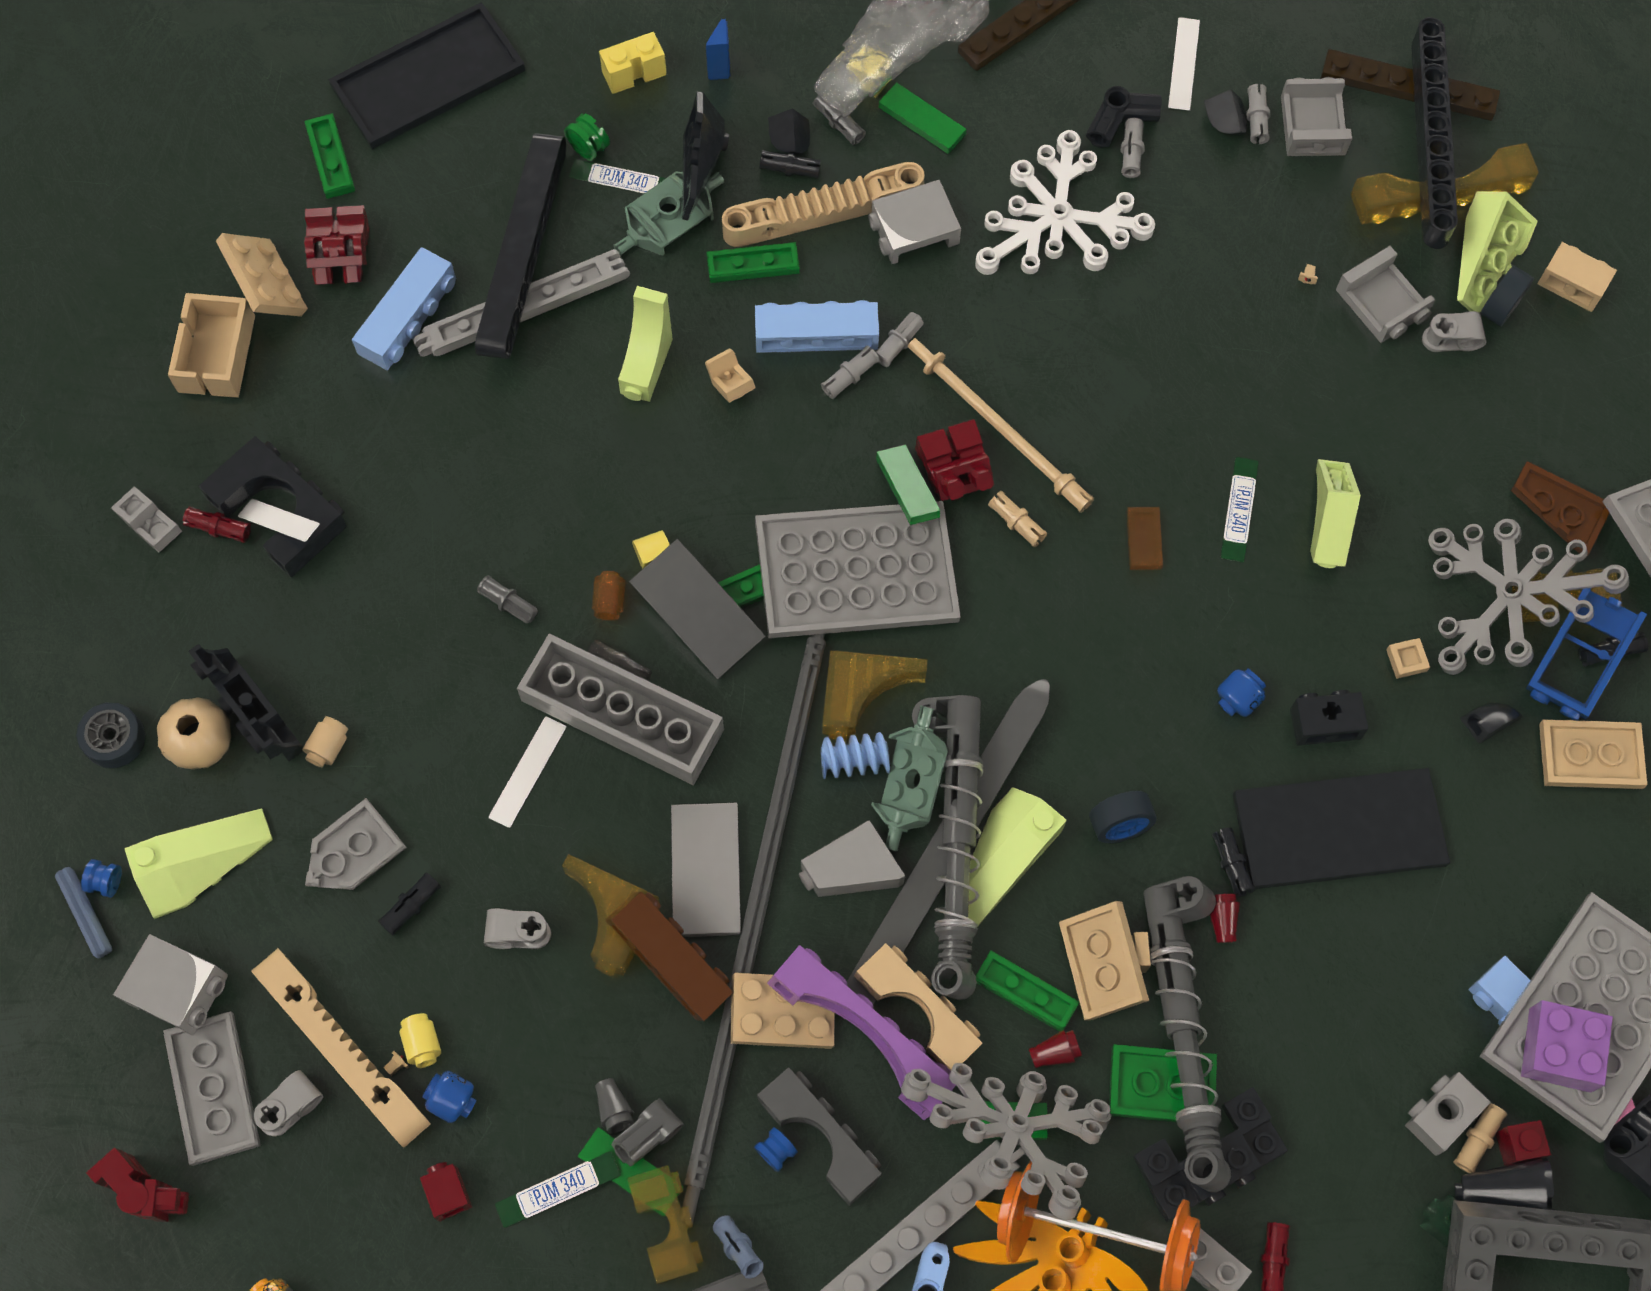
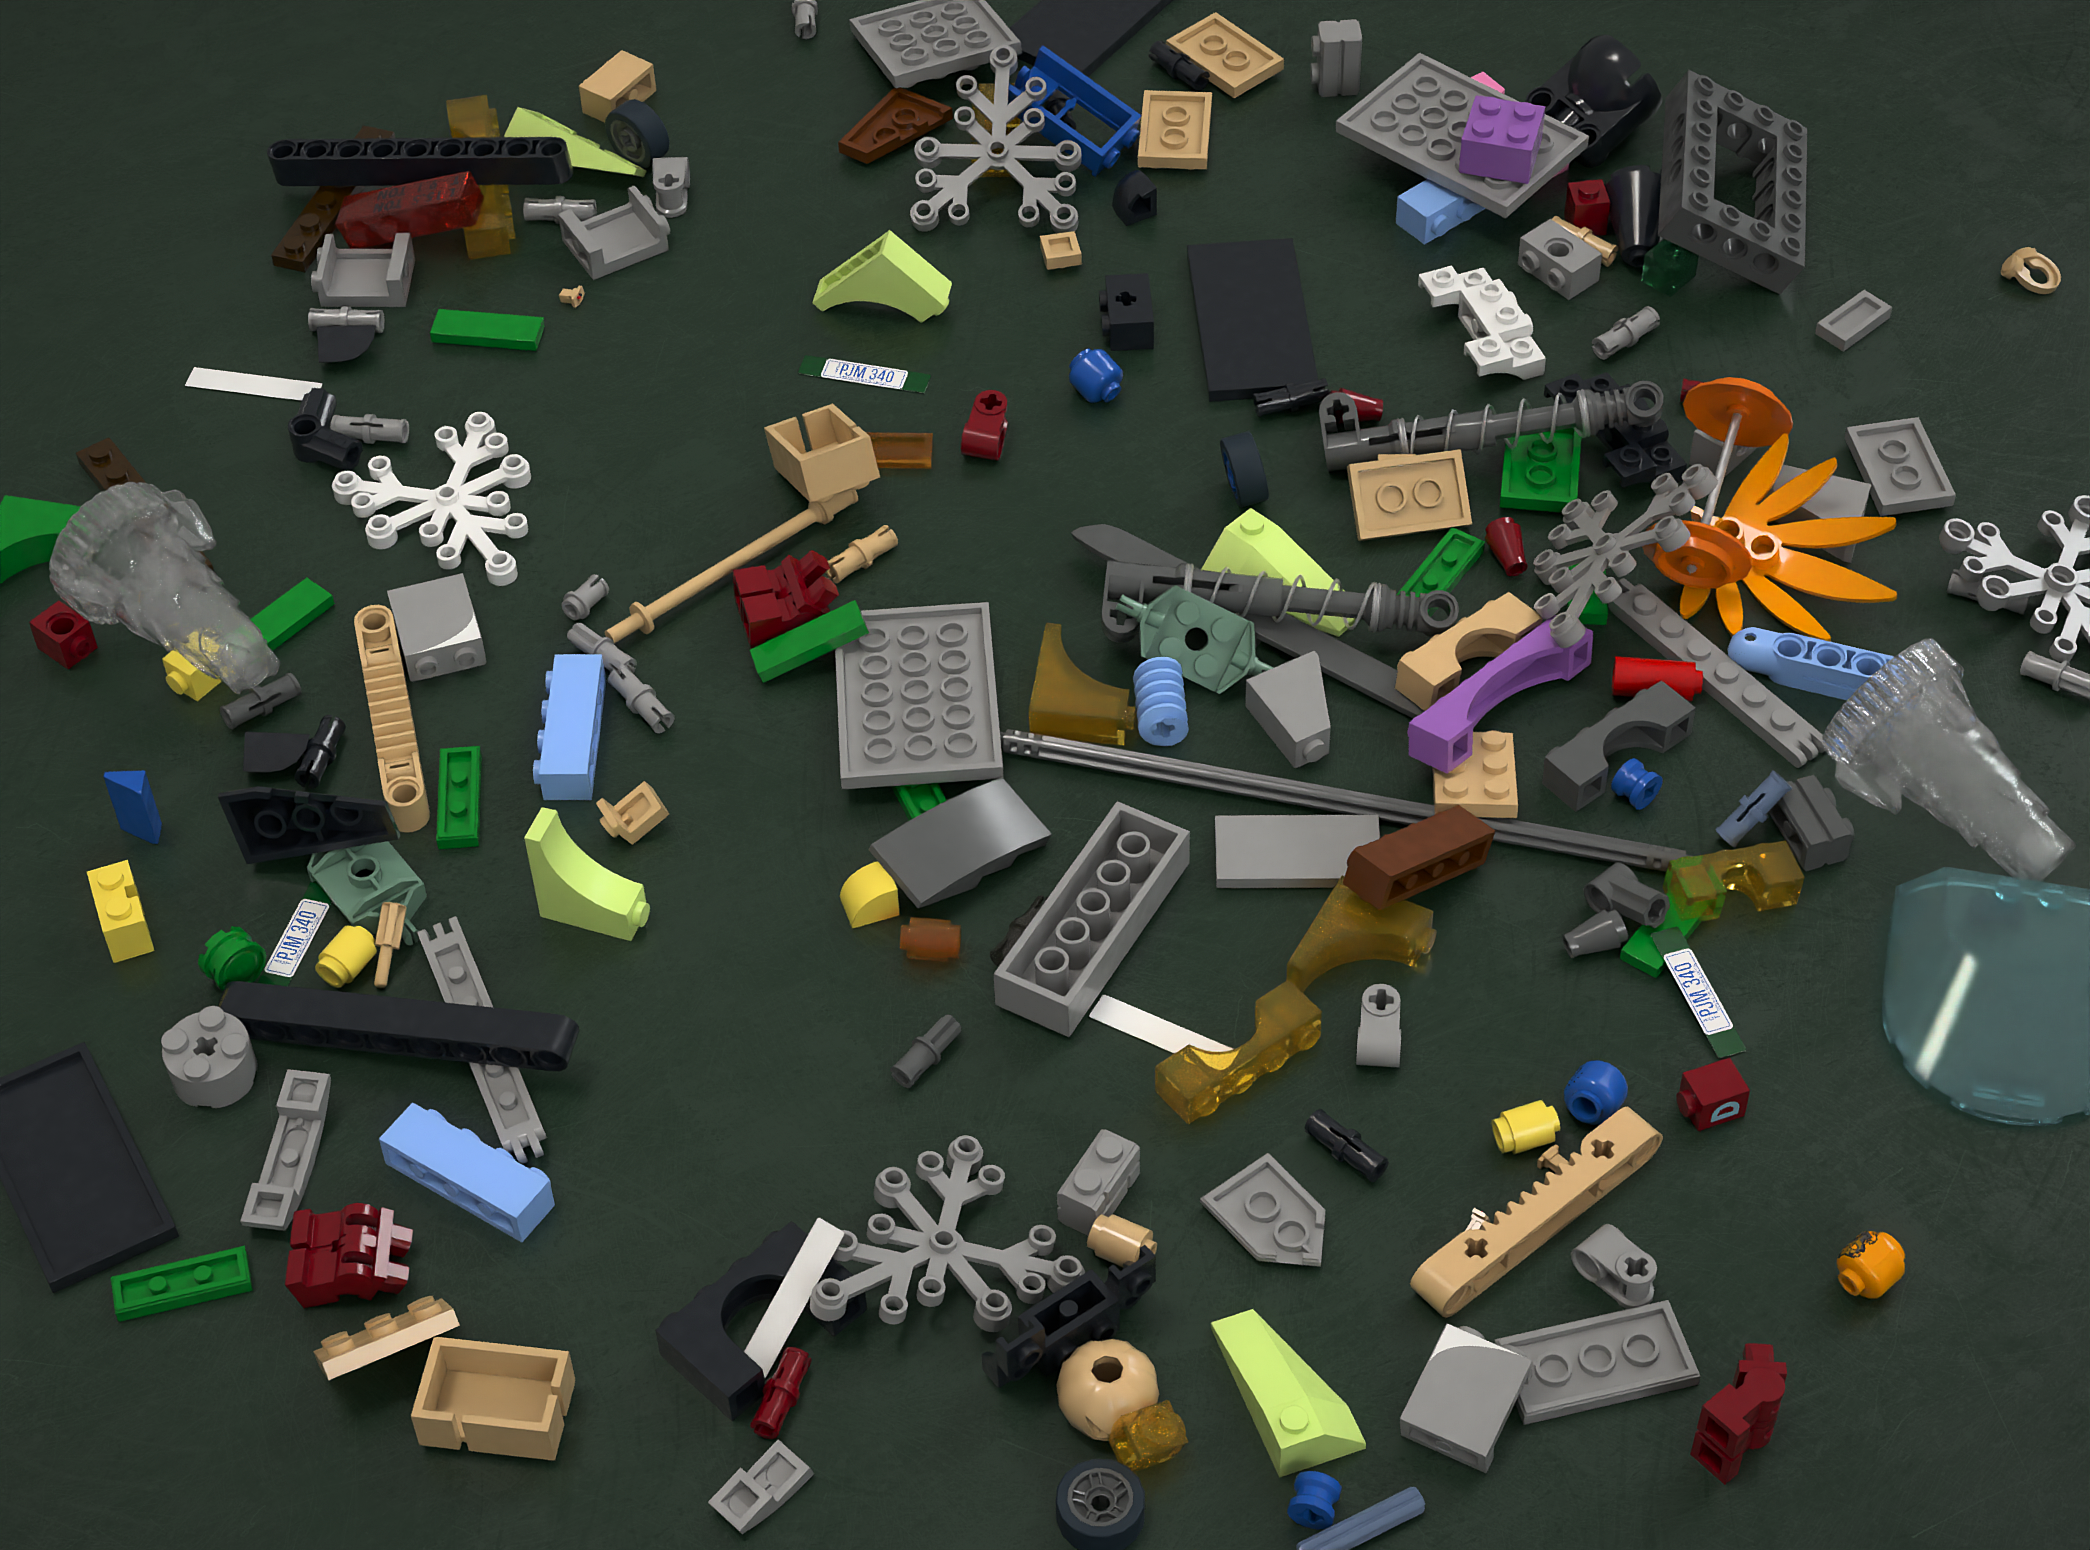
camera: 85 degrees left, 20 degrees down
(151, 763) = (1148, 1436): none -> clear yellow brick
(298, 586) = (942, 1246): none -> light grey plant
(338, 1002) = (1477, 1219): none -> piece
(375, 723) = (1098, 1181): none -> light grey brick
(422, 202) = (291, 1151): none -> light grey slope
(501, 137) = (209, 1058): none -> light grey brick
(521, 853) = (1200, 1080): none -> clear yellow arch
(595, 208) = (346, 955): none -> light yellow brick
(608, 231) = (388, 938): none -> tan axle
(898, 1174) = (1635, 674): none -> red brick
(956, 321) = (578, 603): none -> light grey pin
(1100, 475) = (838, 456): none -> tan piece
(1165, 605) = (986, 426): none -> dark red piece
(1260, 217) = (487, 329): none -> green tile
(1344, 1051) = (1491, 318): none -> white bracket
(1351, 1174) = (1625, 332): none -> light grey pin
(1377, 134) = (410, 208): none -> clear red brick
(1413, 252) = (550, 208): none -> light grey pin

